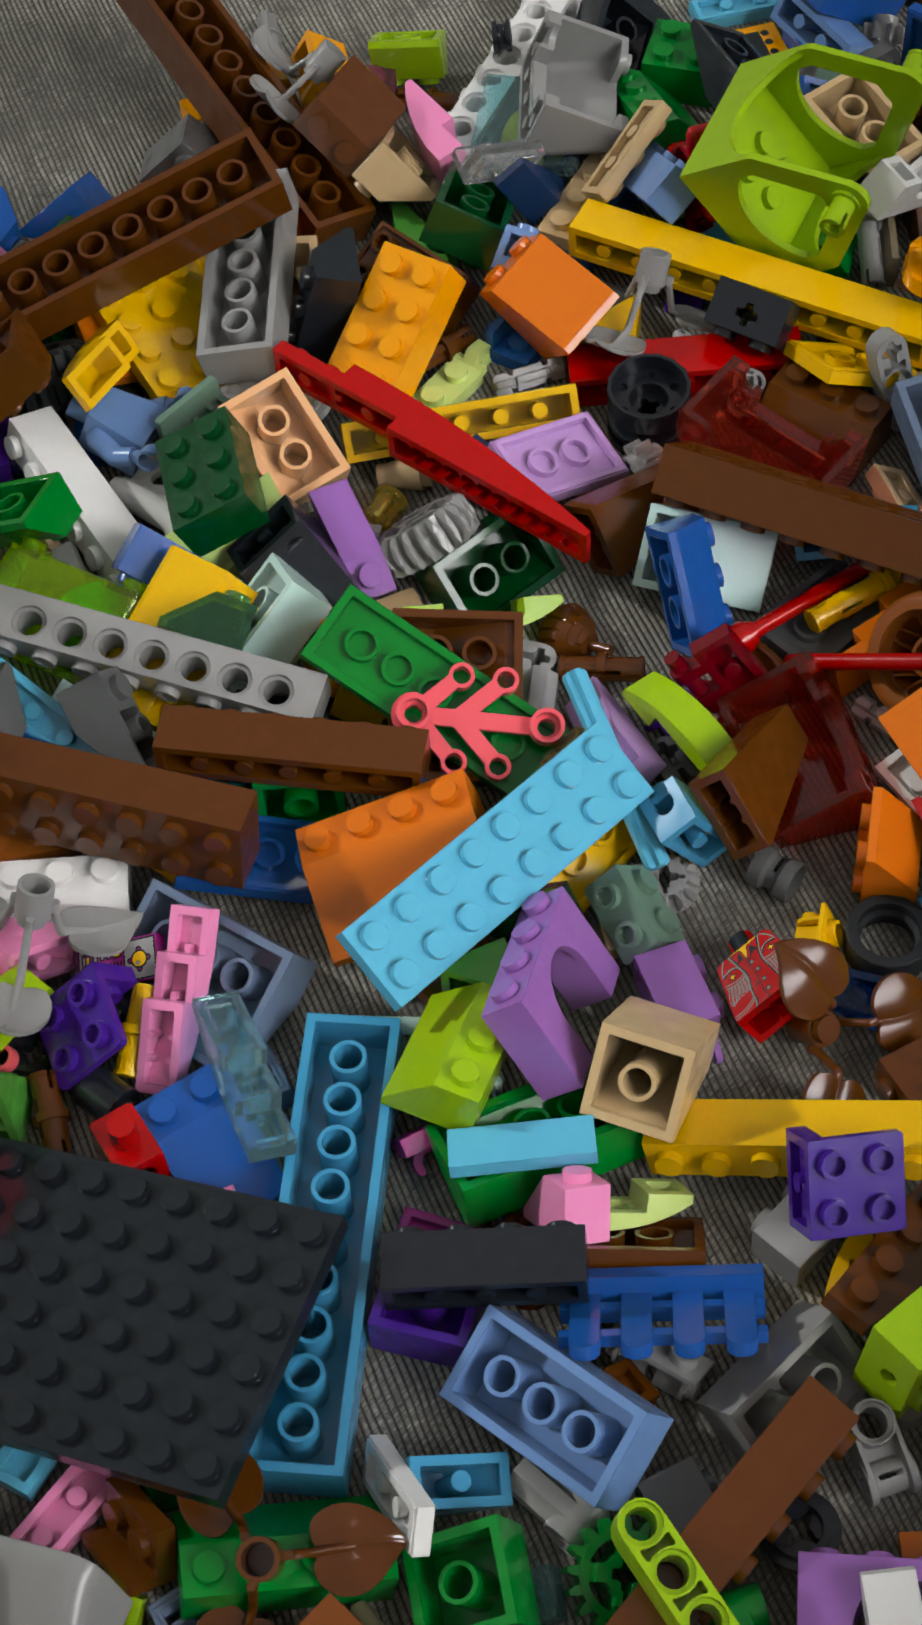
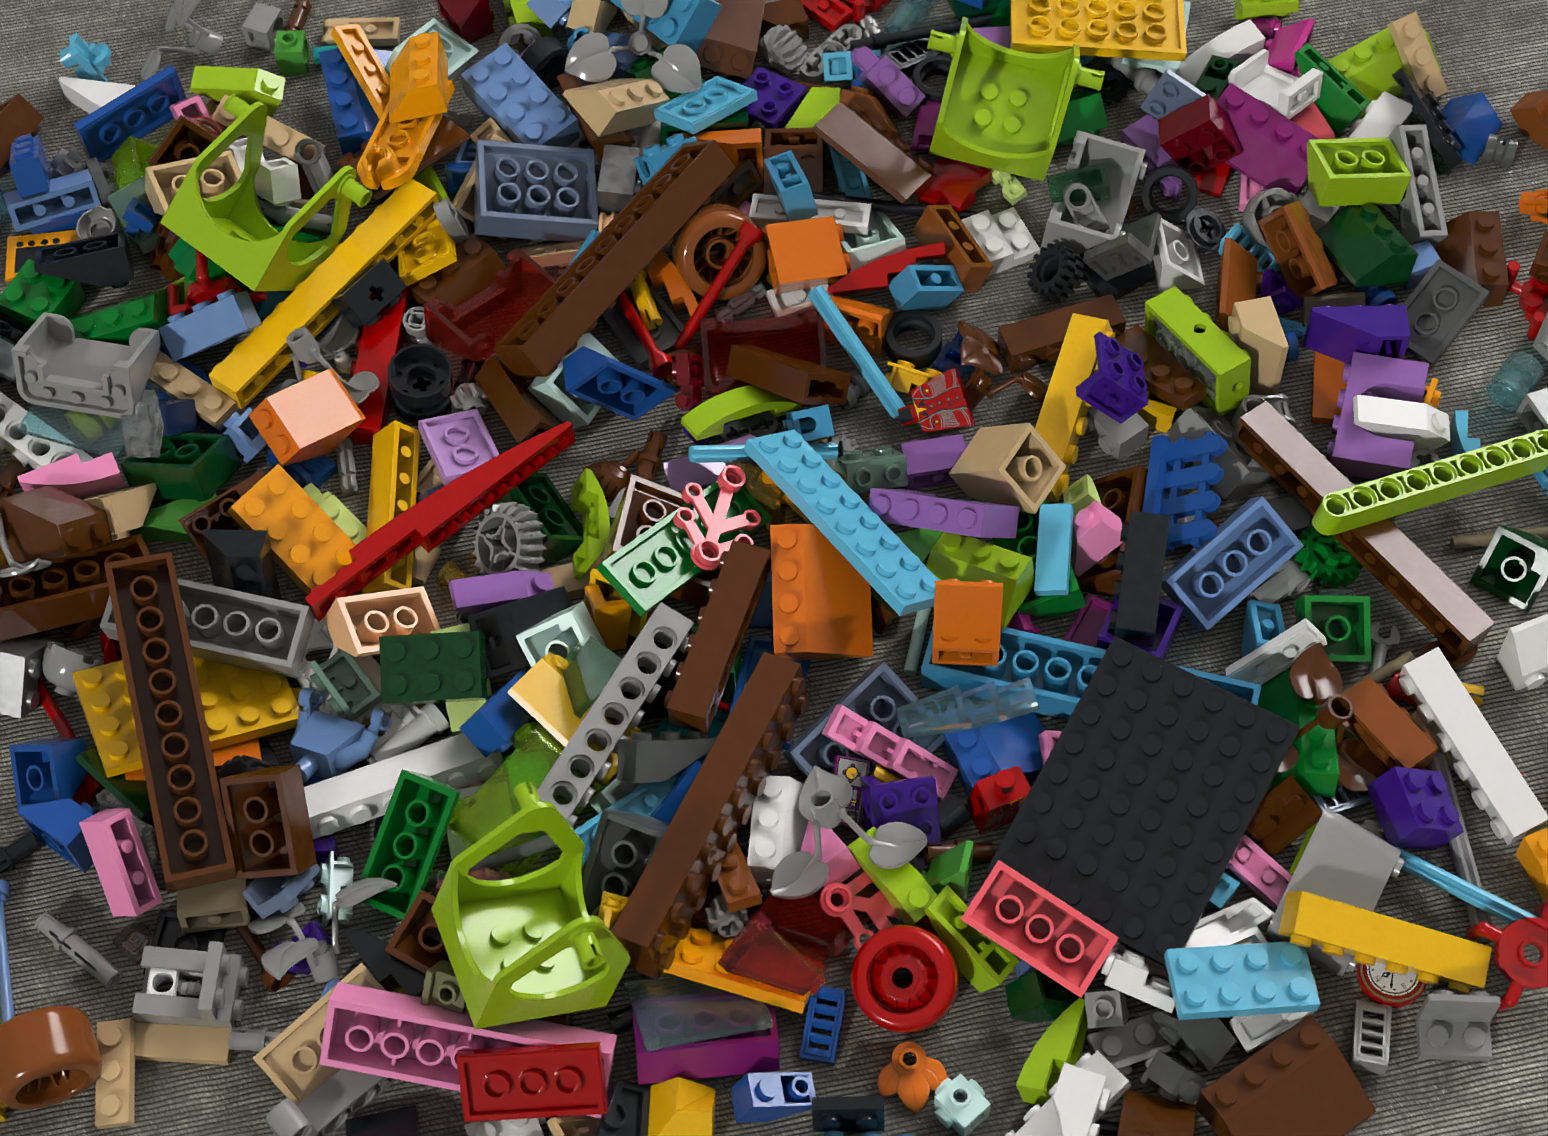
camera: 80 degrees left, 5 degrees up
(100, 364) = (270, 741): yellow slope -> none
(349, 1033) = (967, 622): none -> orange slope
(627, 151) = (179, 334): tan plate -> none
(824, 846) = (856, 350): none -> medium azure axle

